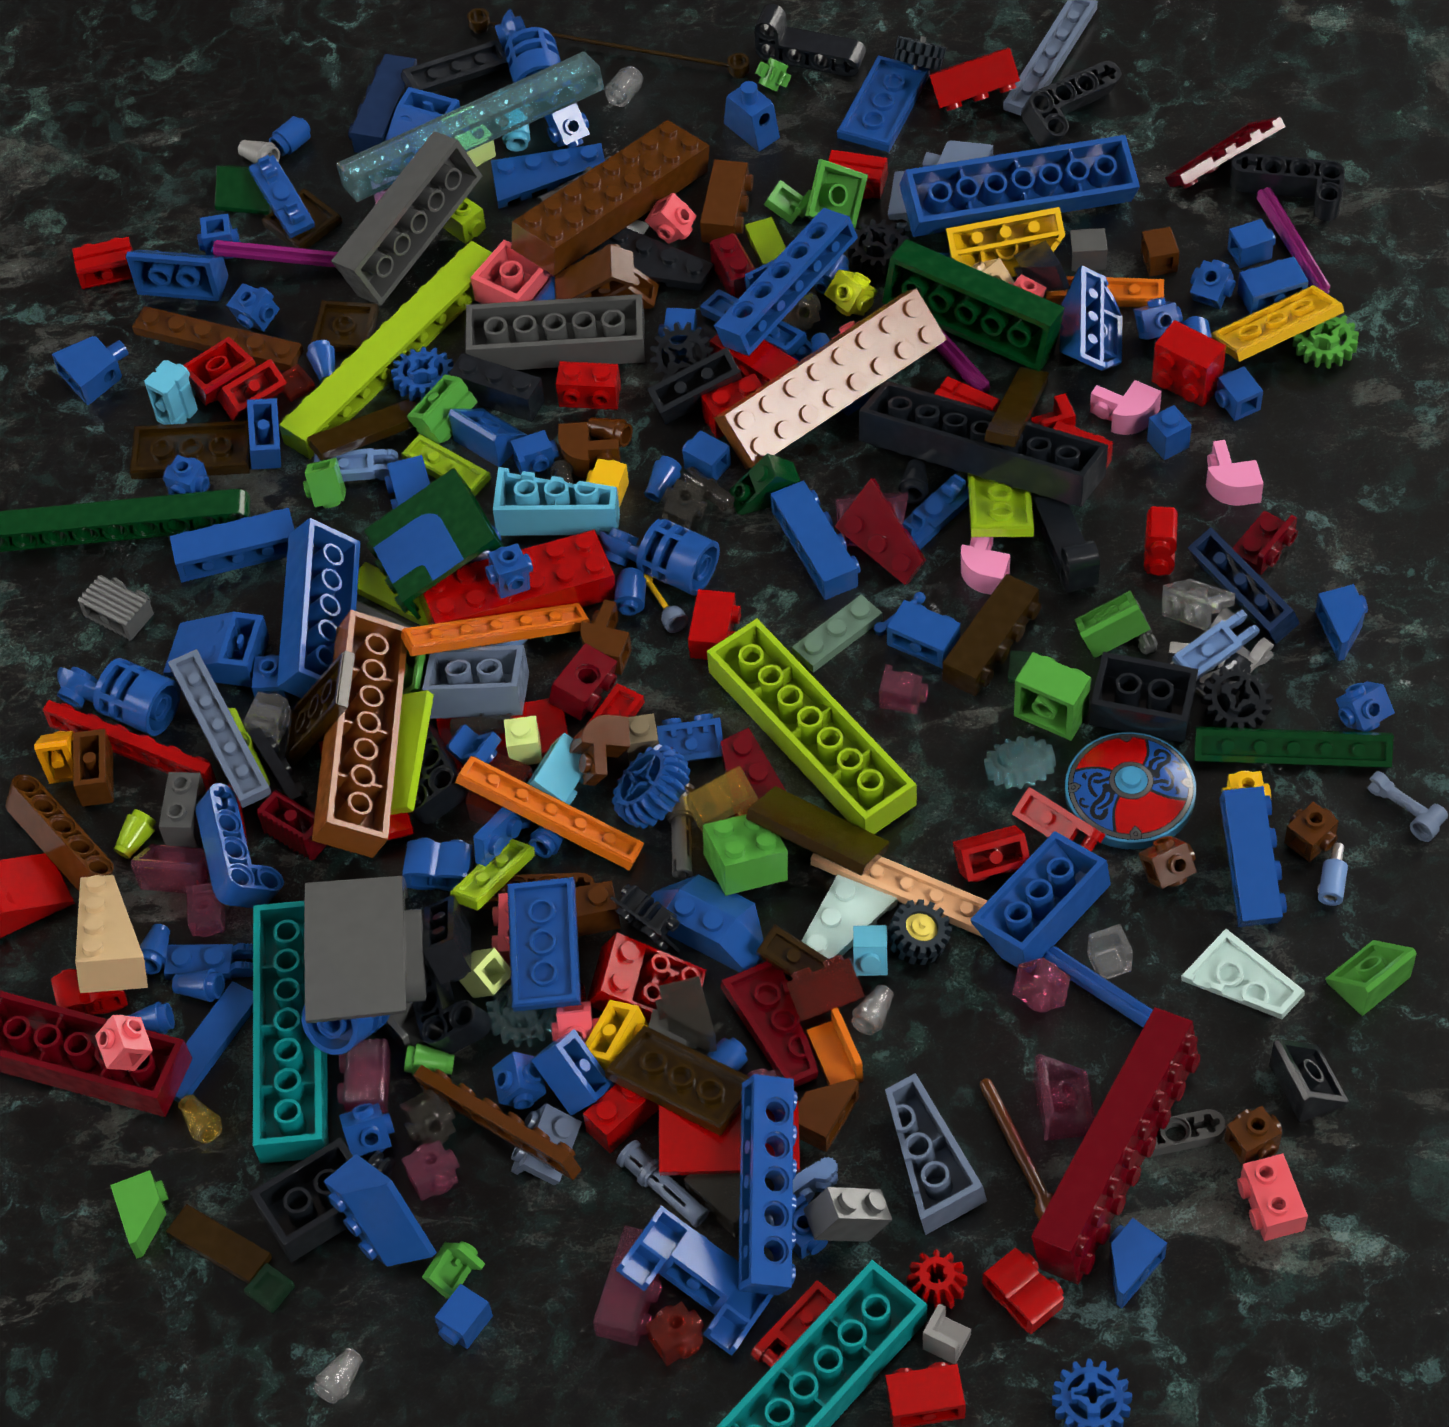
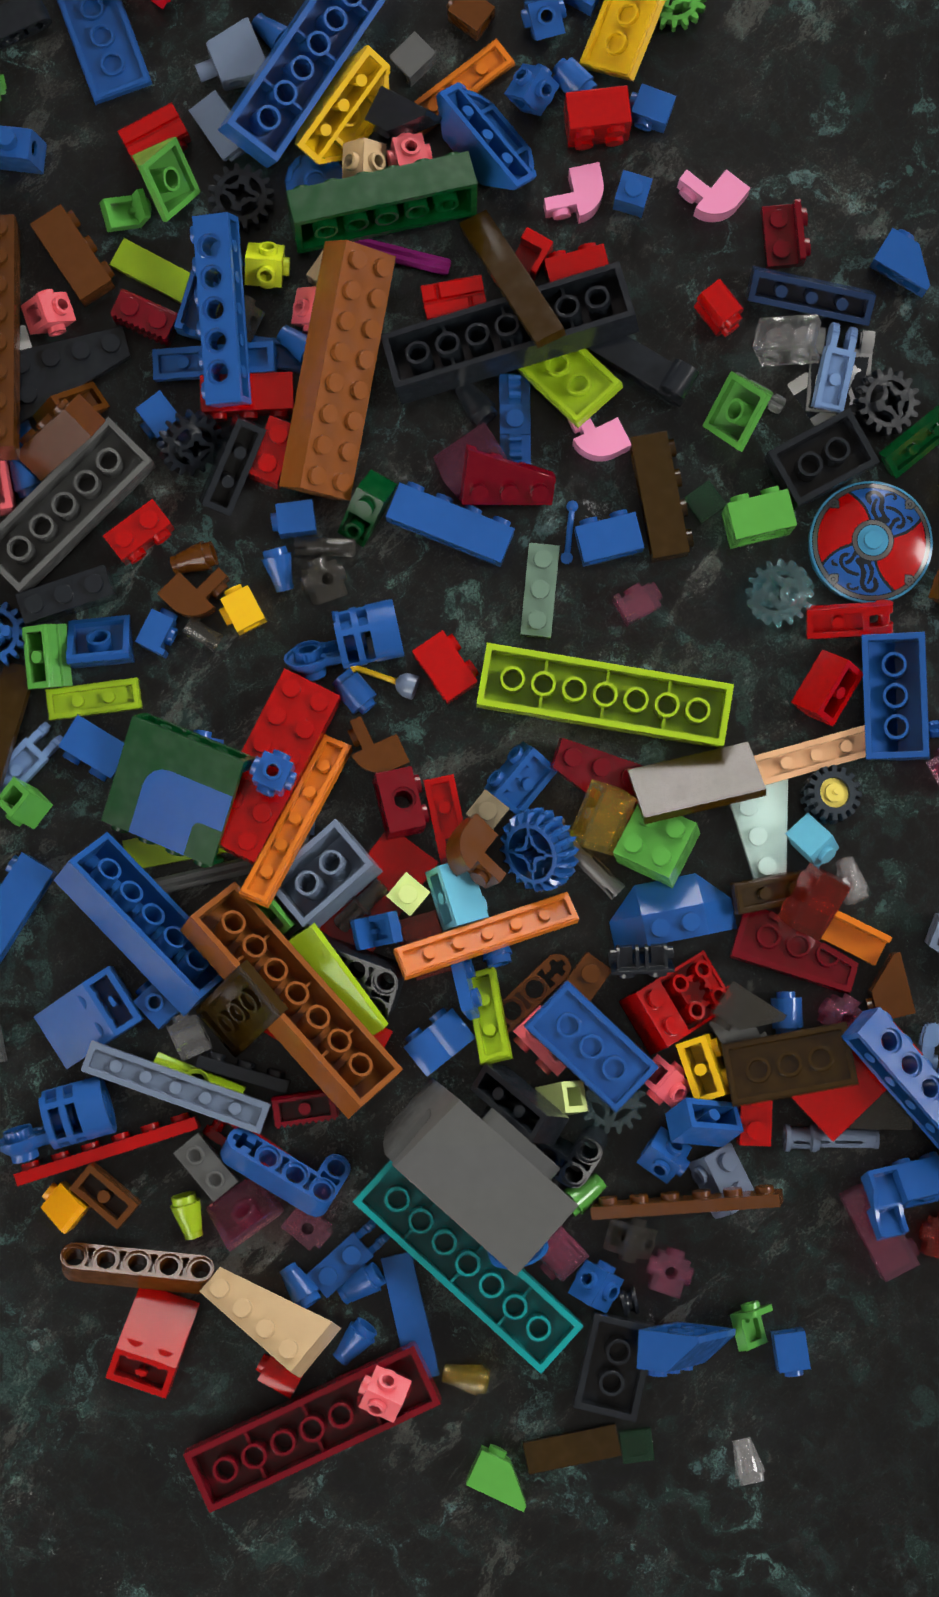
camera: 50 degrees left, 30 degrees up
(552, 506) = (223, 670): medium azure wedge -> none

